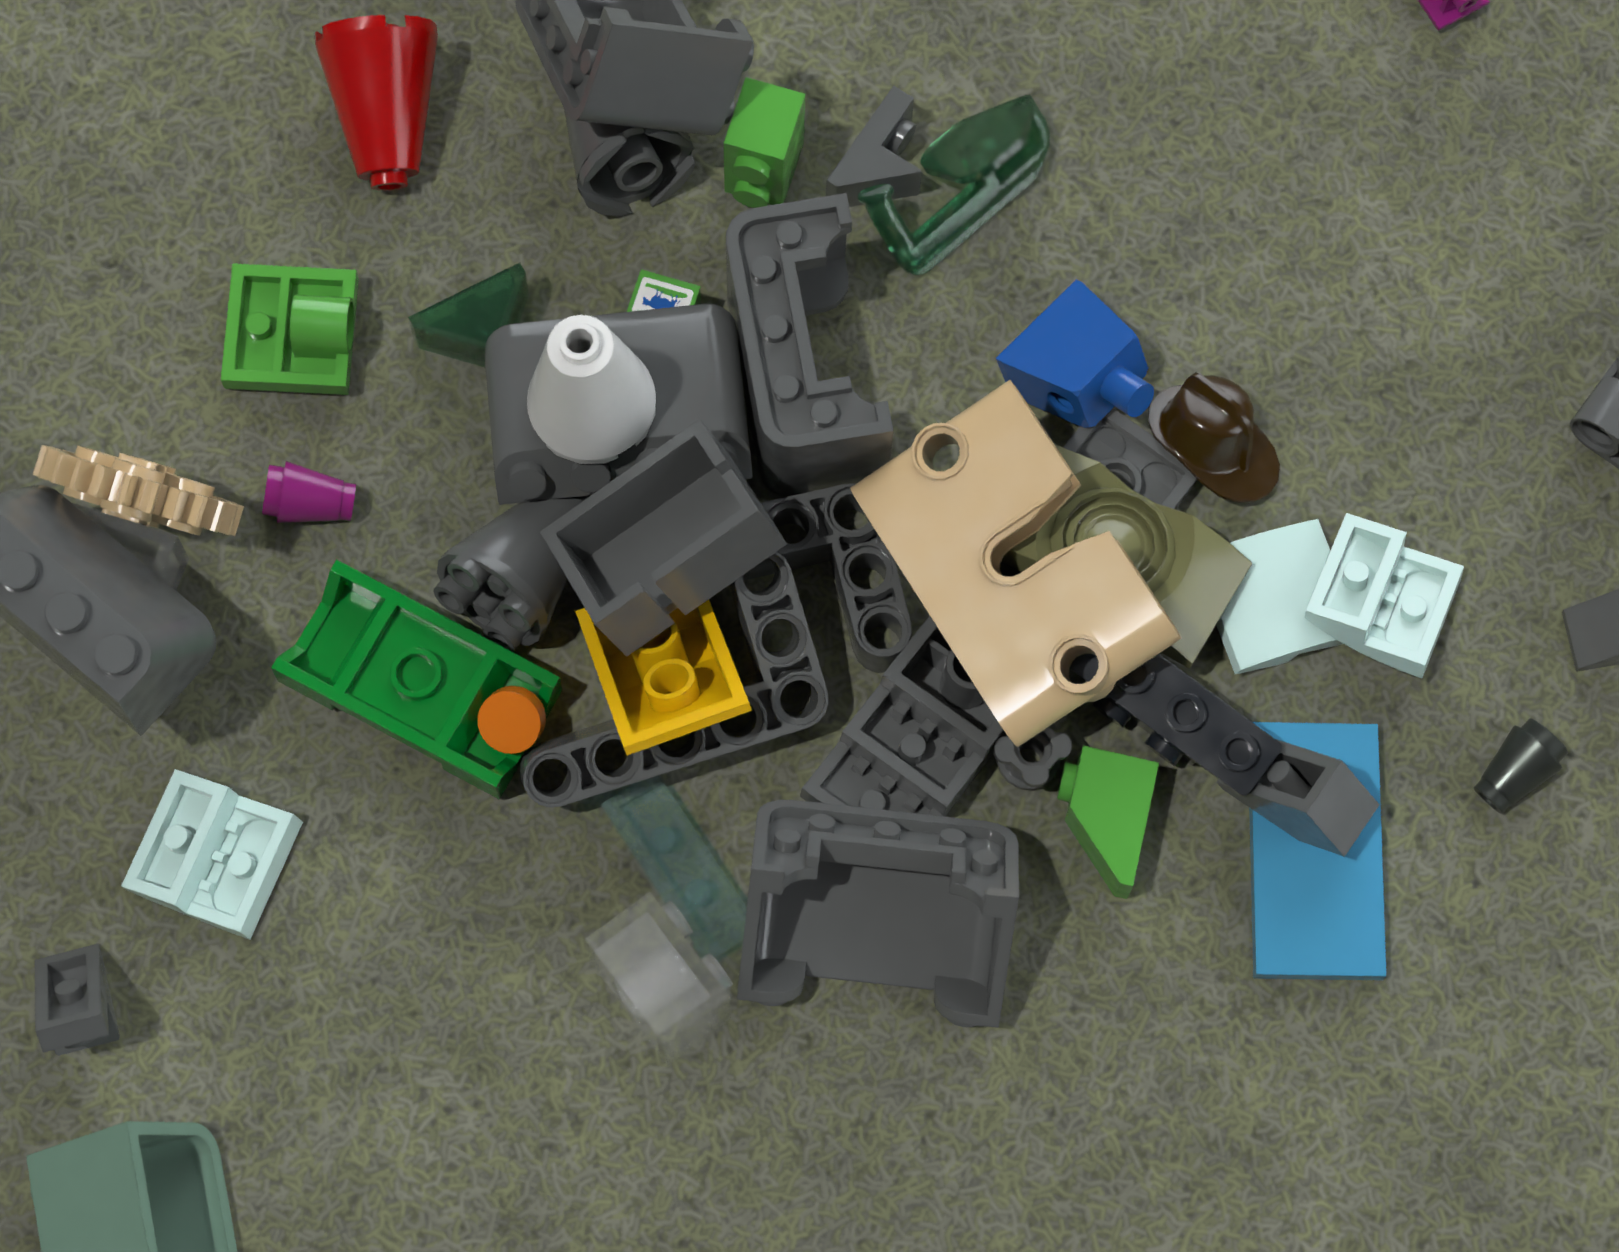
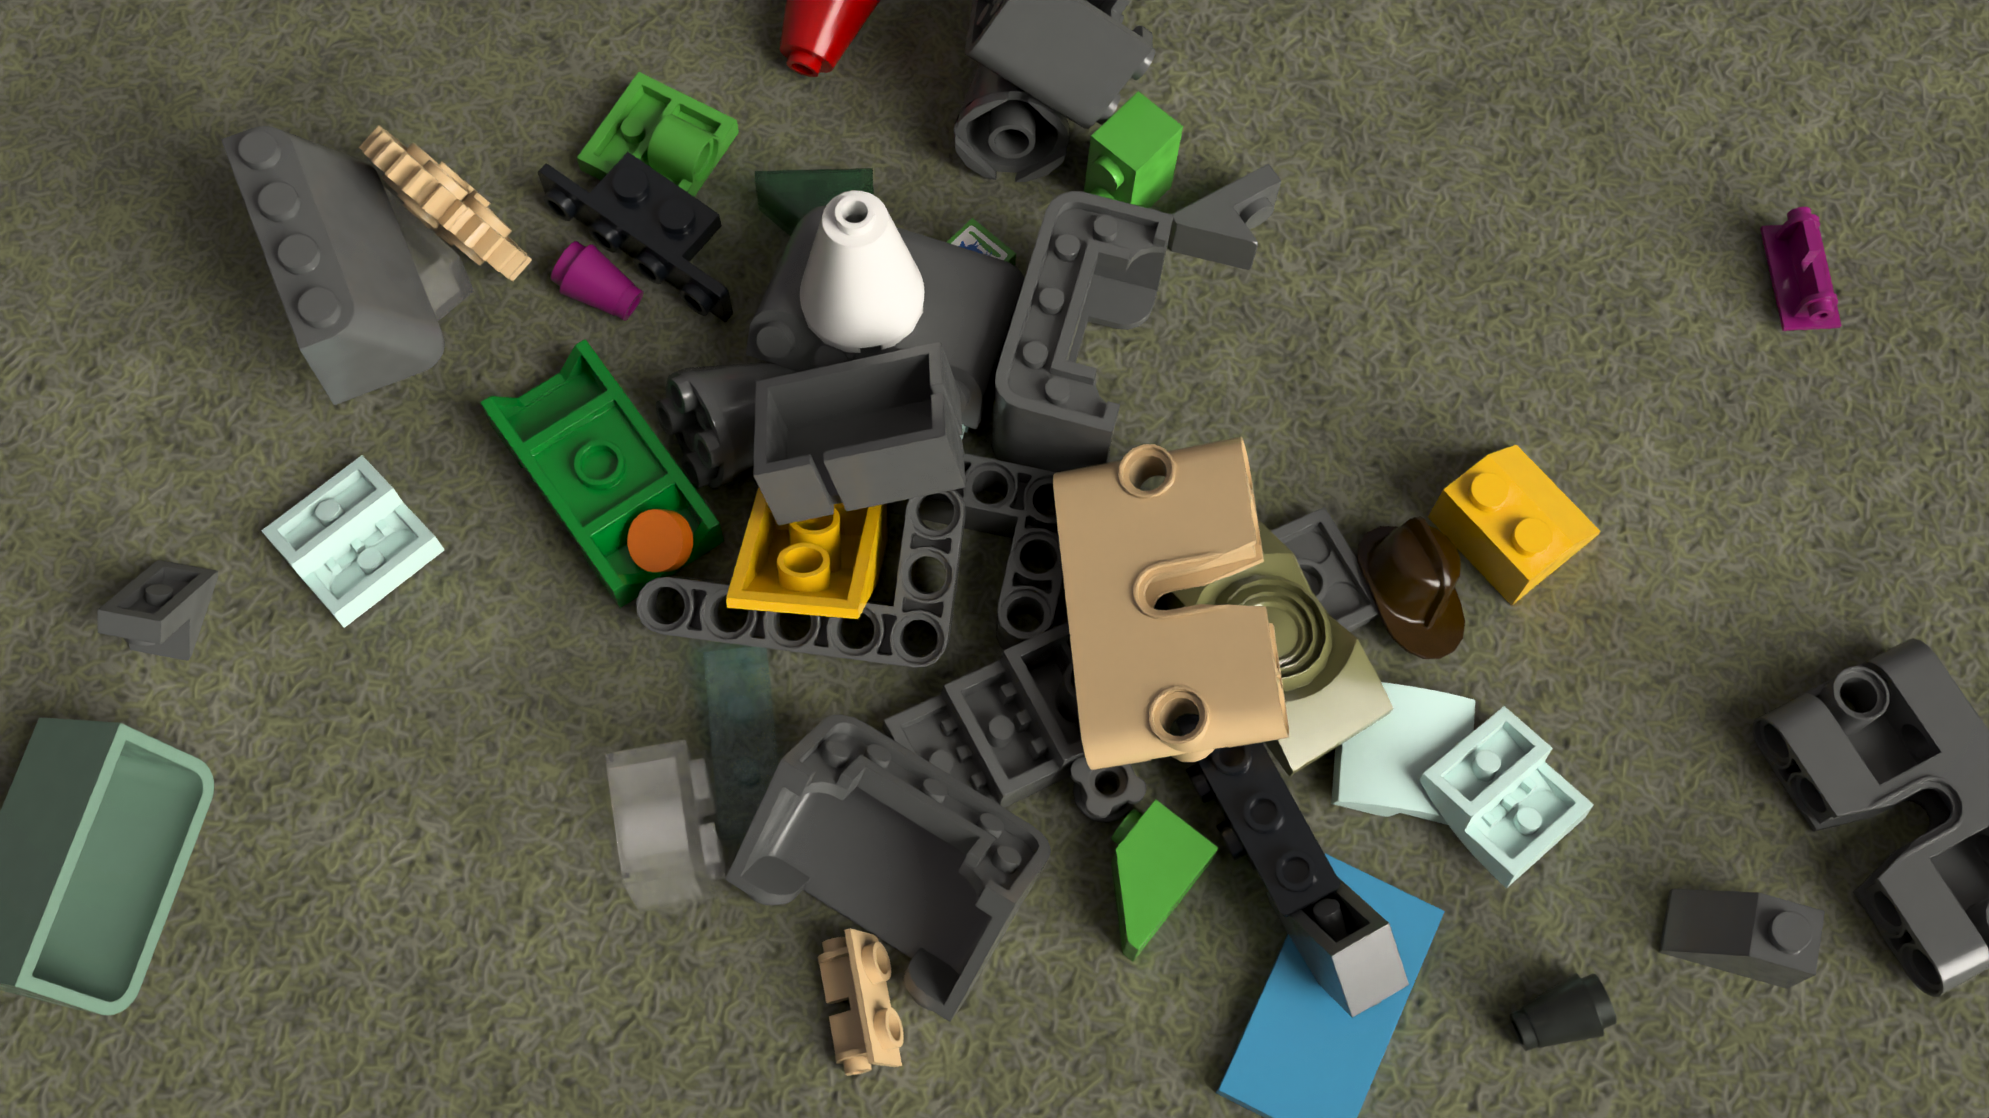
camera: 25 degrees right, 5 degrees down
(327, 413) = (649, 222): none -> black bracket
(926, 1066) = (871, 1031): none -> tan hinge
(990, 150) = (1312, 293): clear green piece -> none
(1078, 361) = (1318, 462): blue torso -> none
(1276, 334) = (1511, 522): none -> yellow slope

